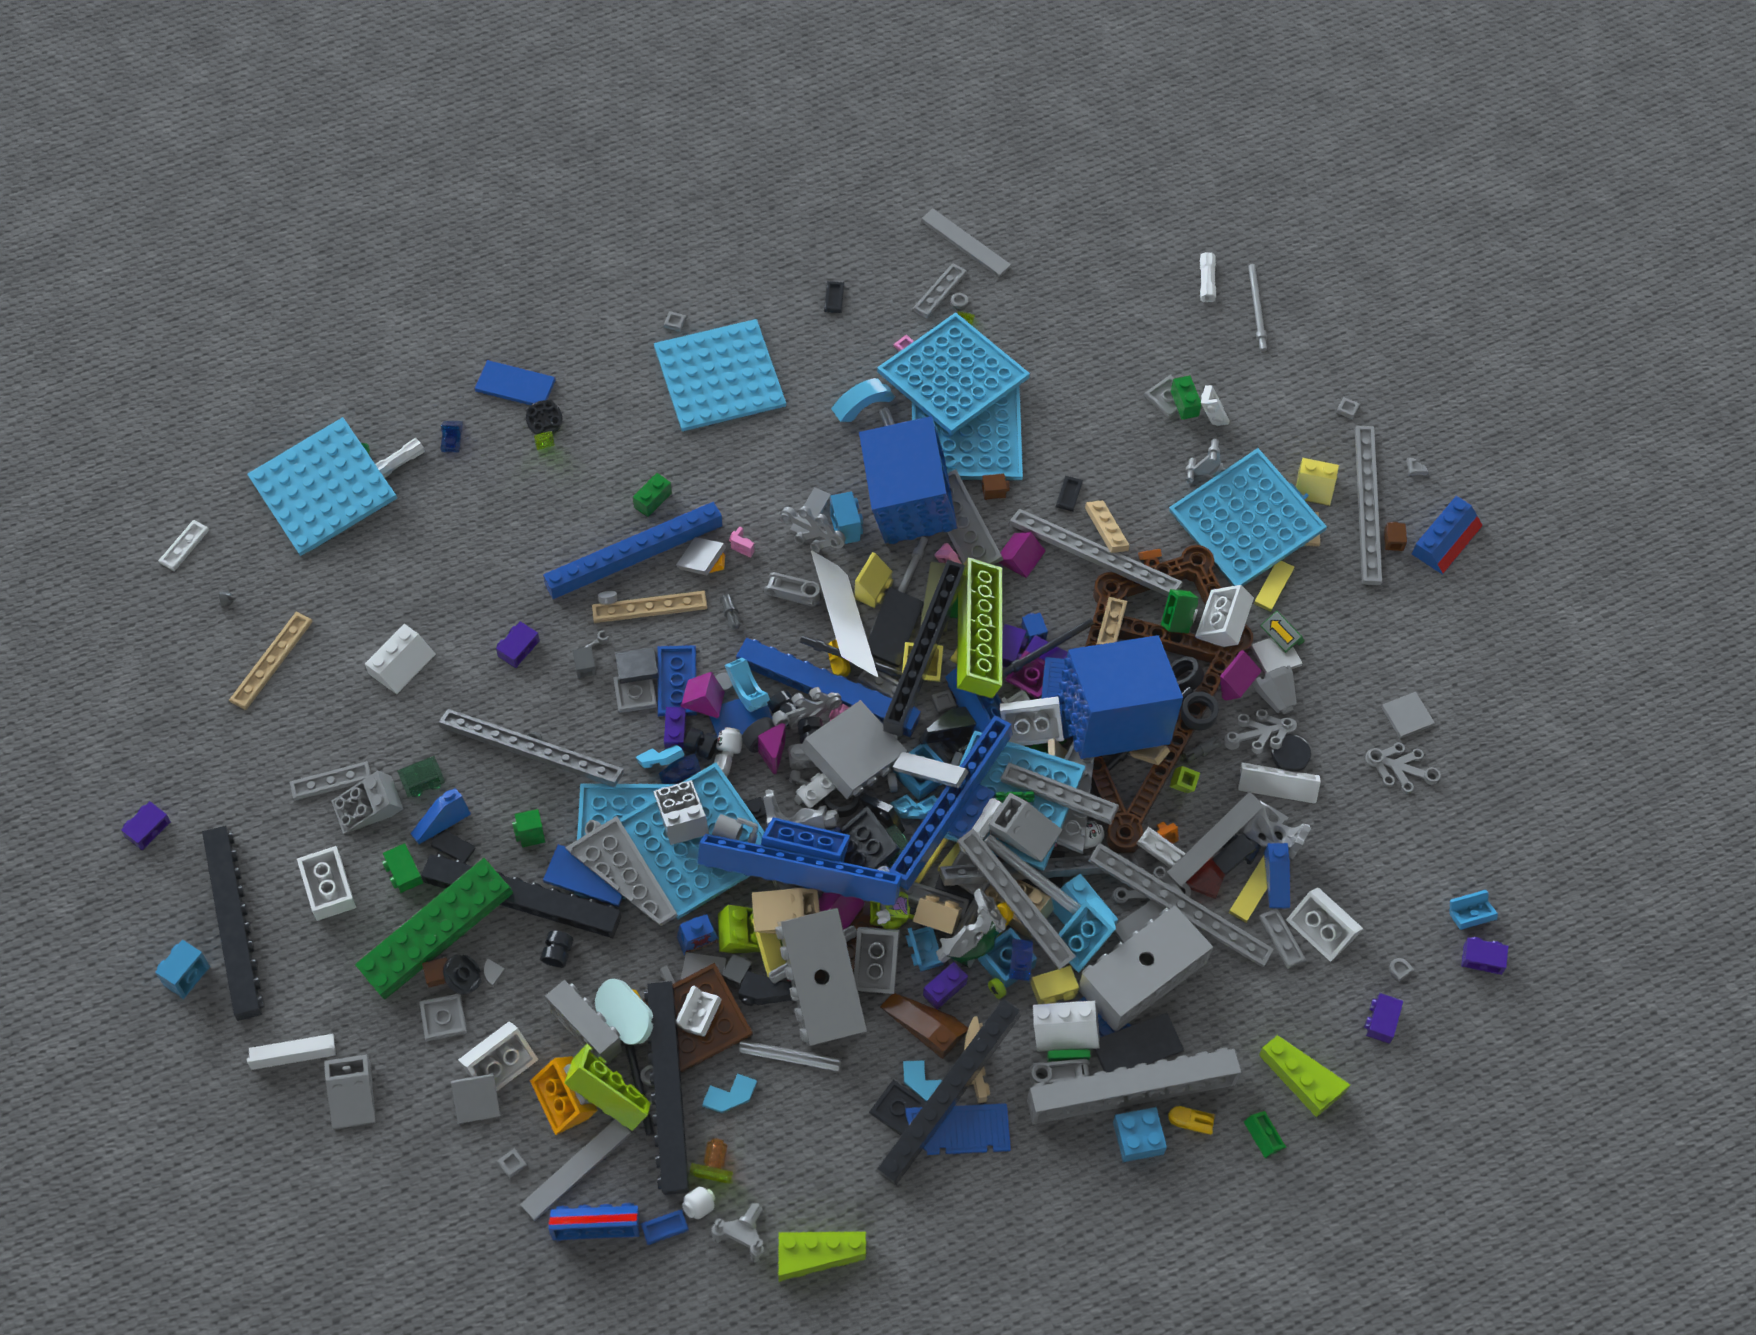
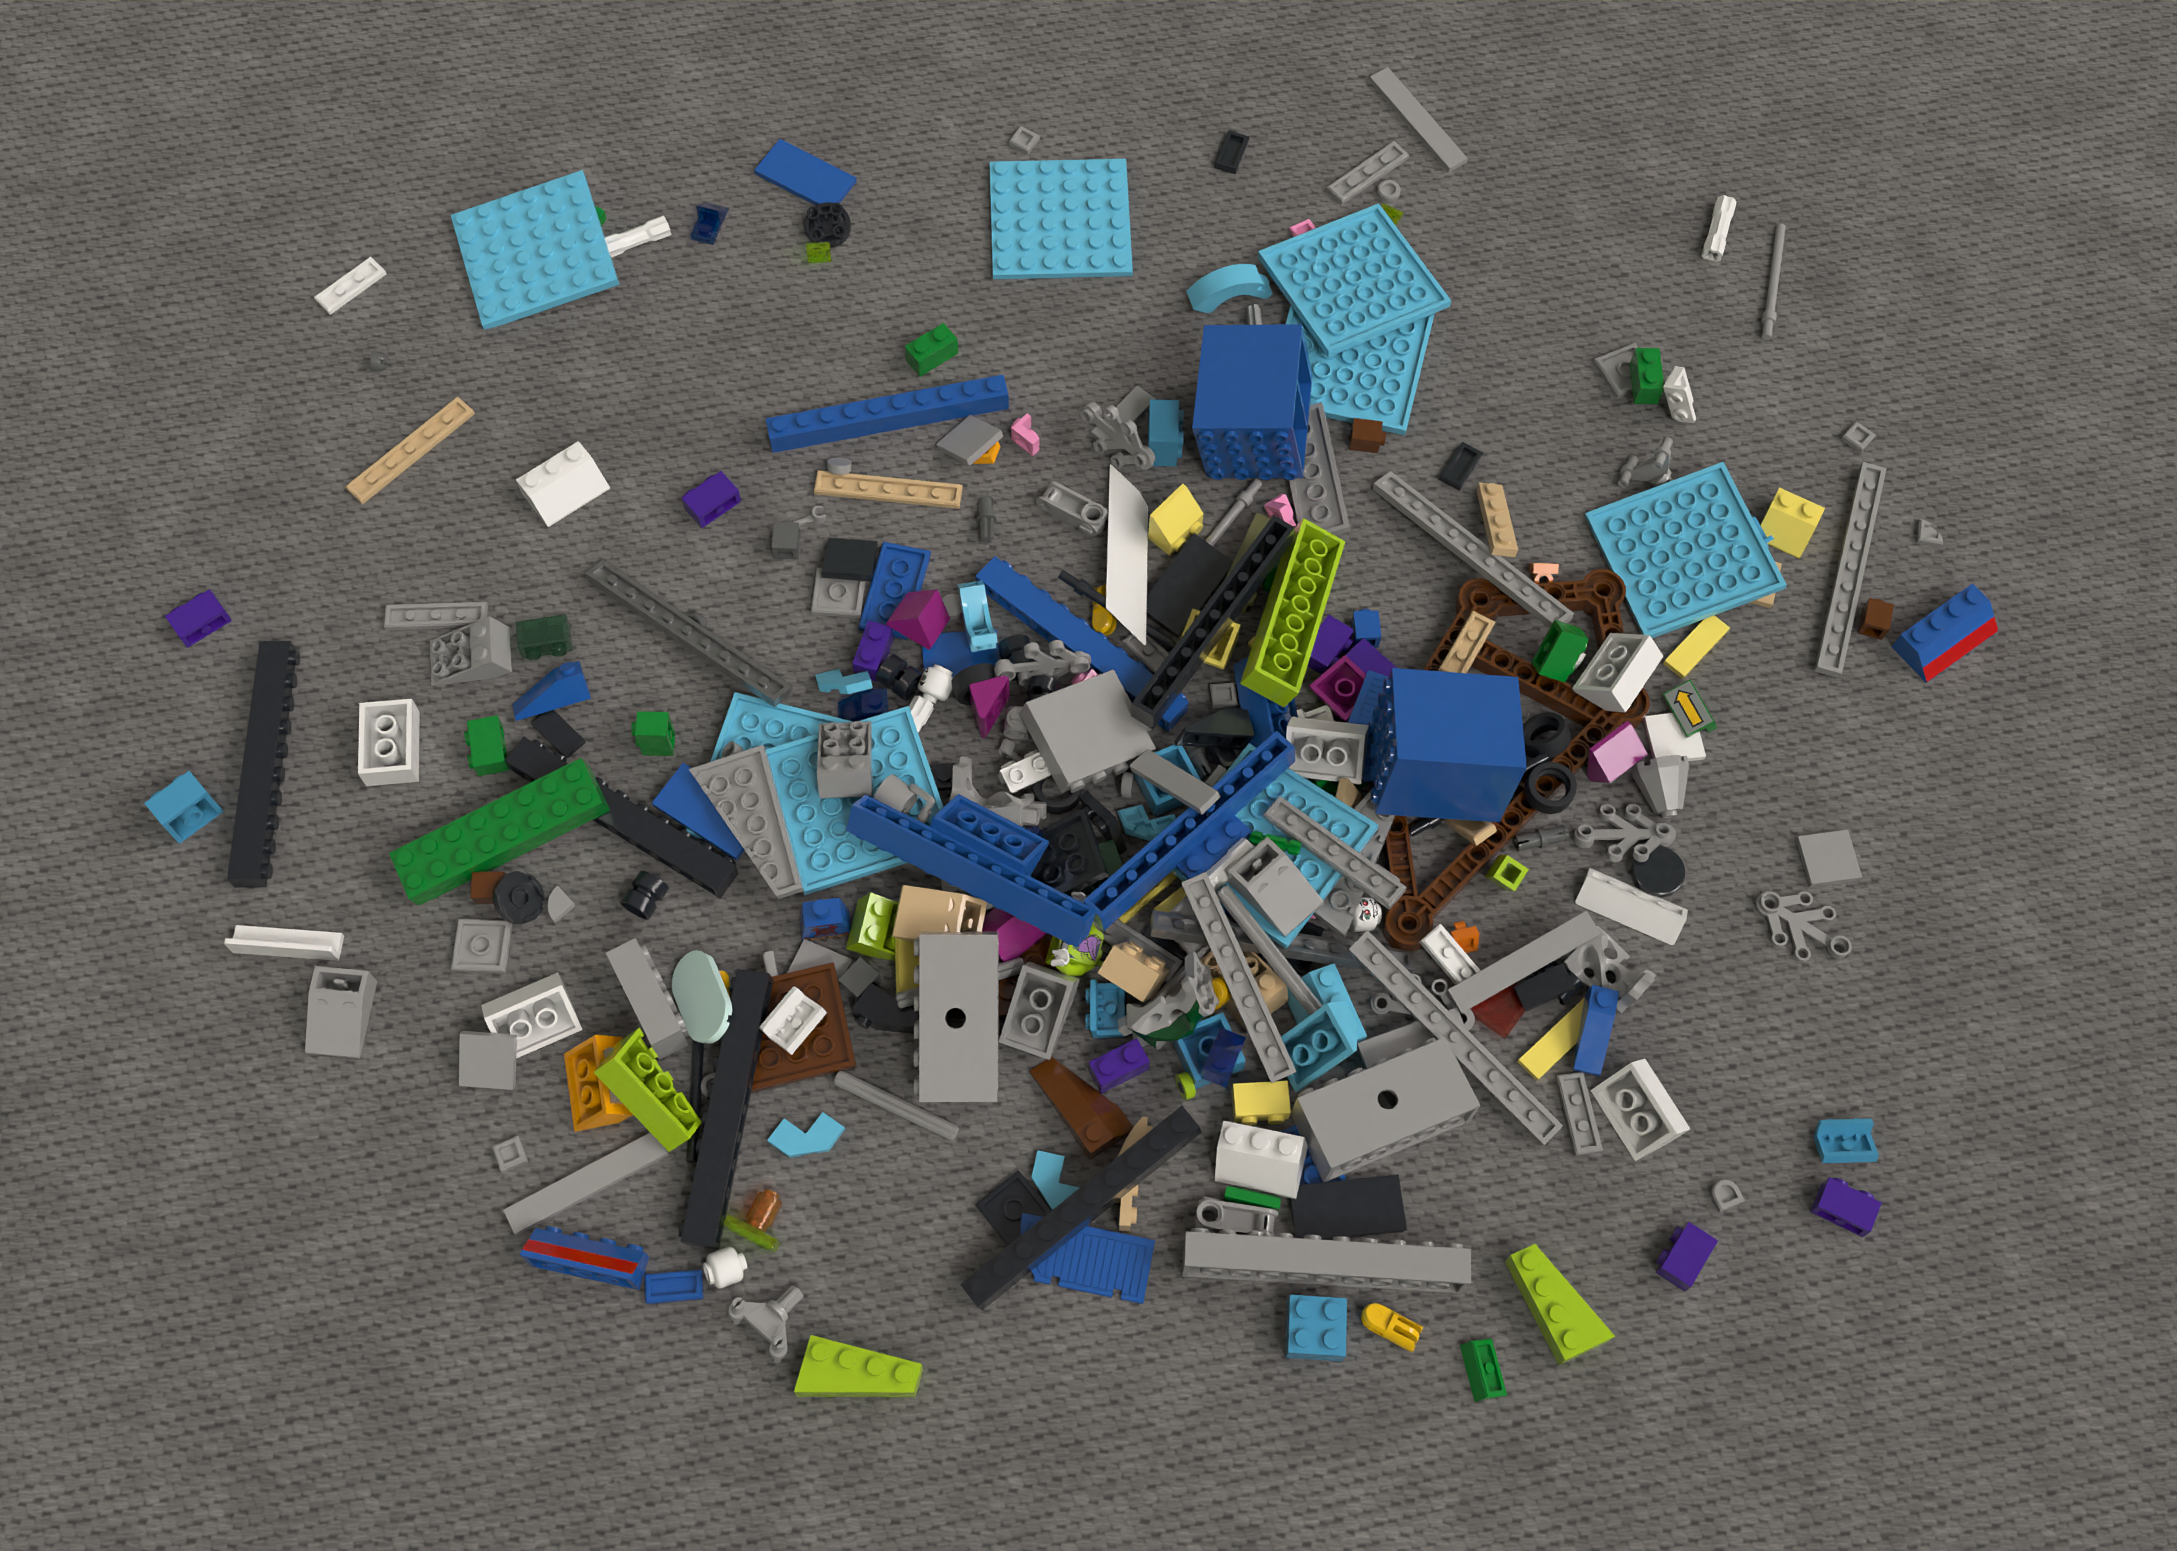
camera: 15 degrees right, 5 degrees up
(1017, 665) = (1328, 672): black bar -> none
(1022, 553) = (1378, 529): magenta slope -> none

